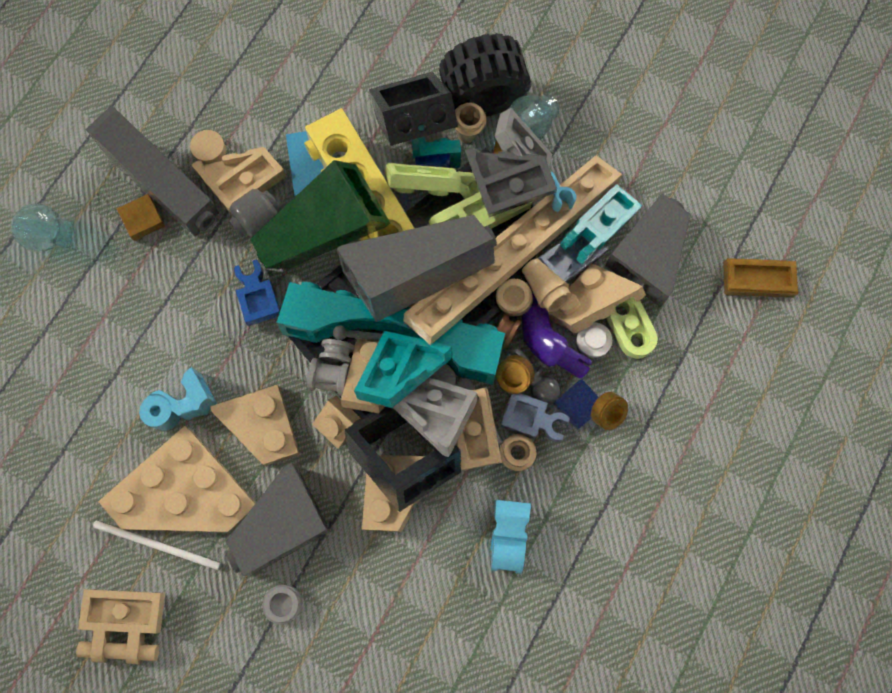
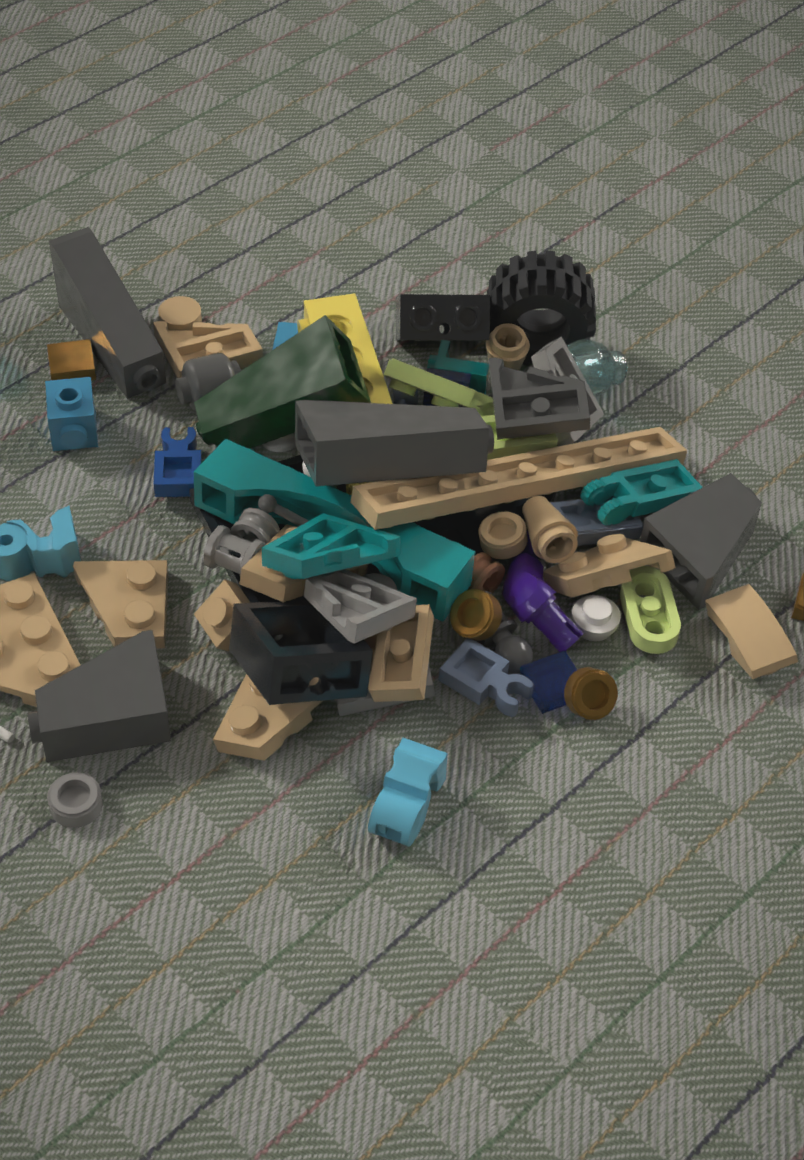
camera: 15 degrees right, 25 degrees down
(160, 272) = (71, 413): none -> dark azure brick
(525, 444) = (451, 700): tan plate -> none
(563, 193) = (599, 439): medium azure hand -> none
(705, 323) = (752, 631): none -> tan slope

